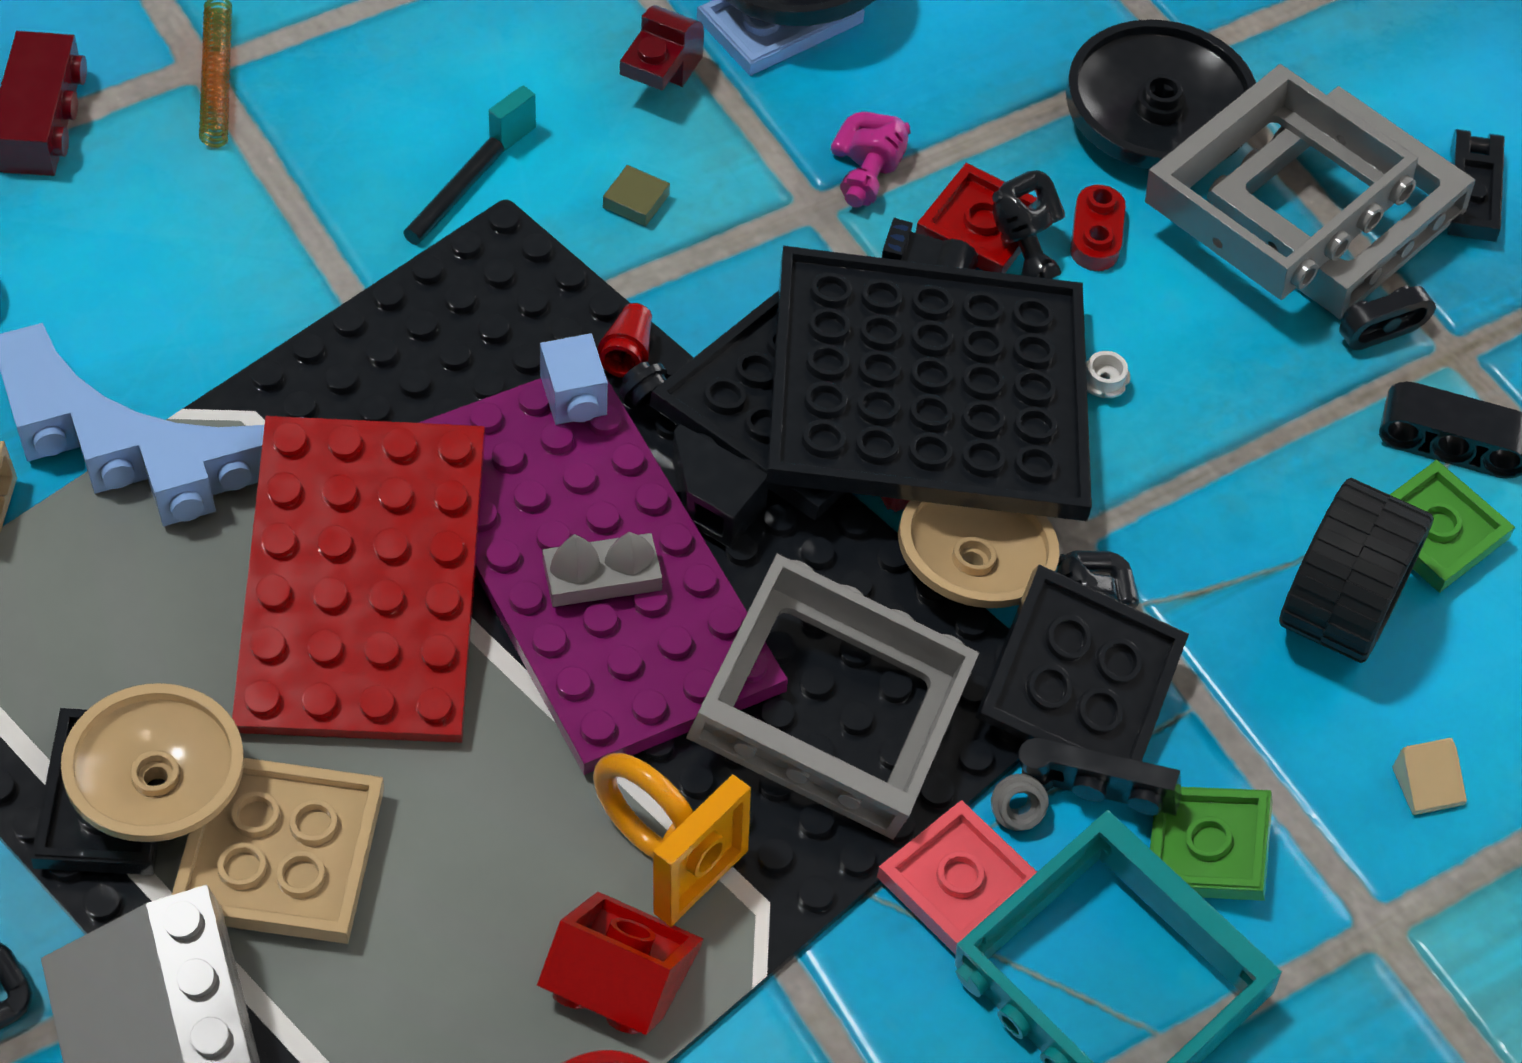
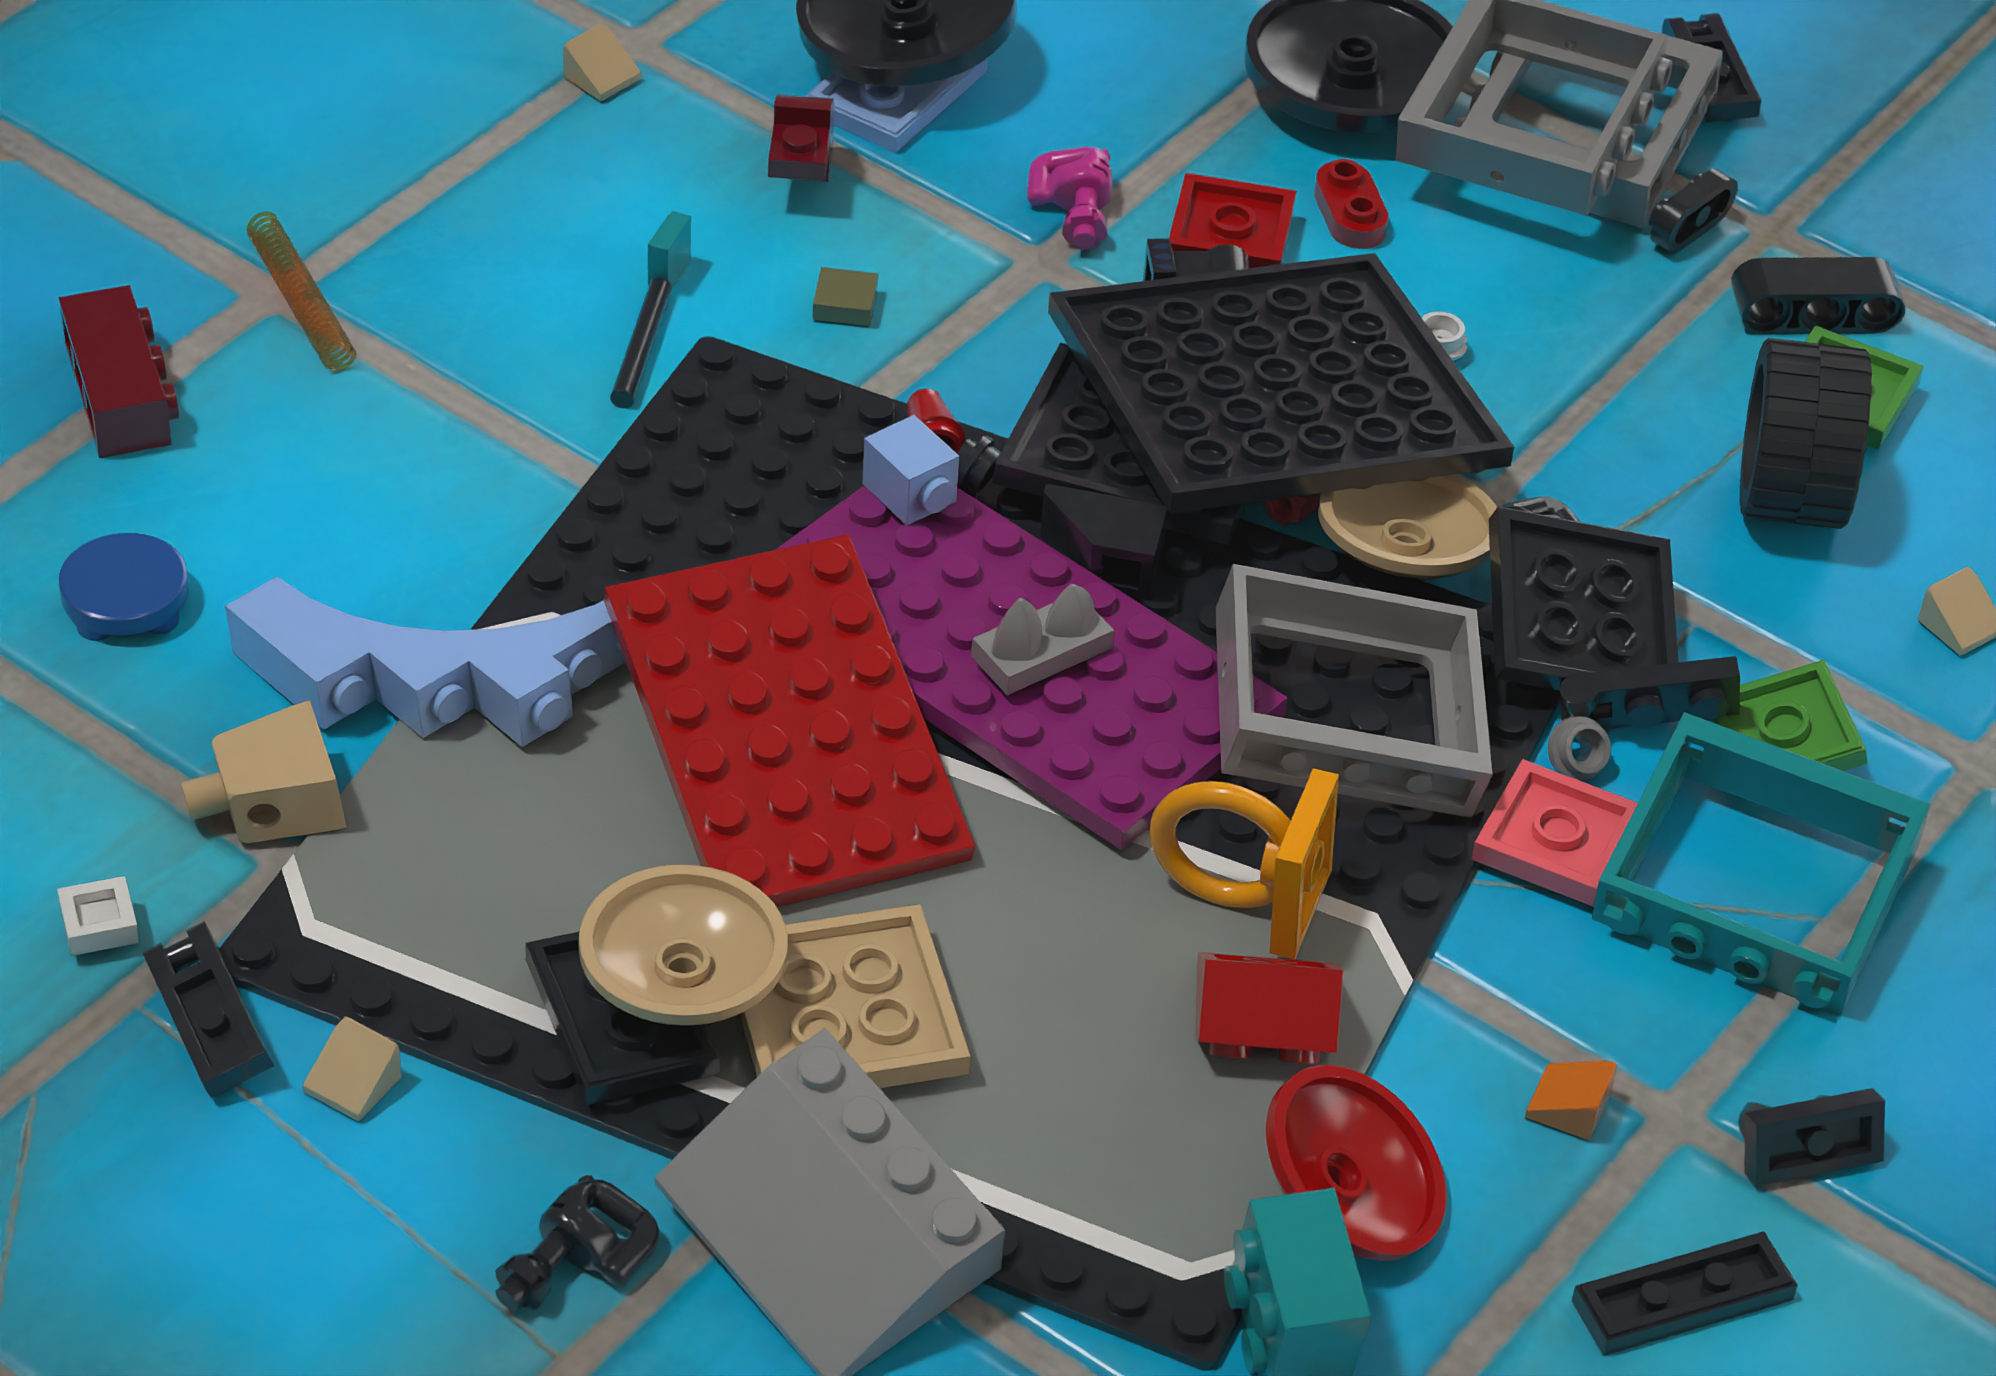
camera: 20 degrees left, 10 degrees down
(1023, 223) = (1284, 206): black piece -> none

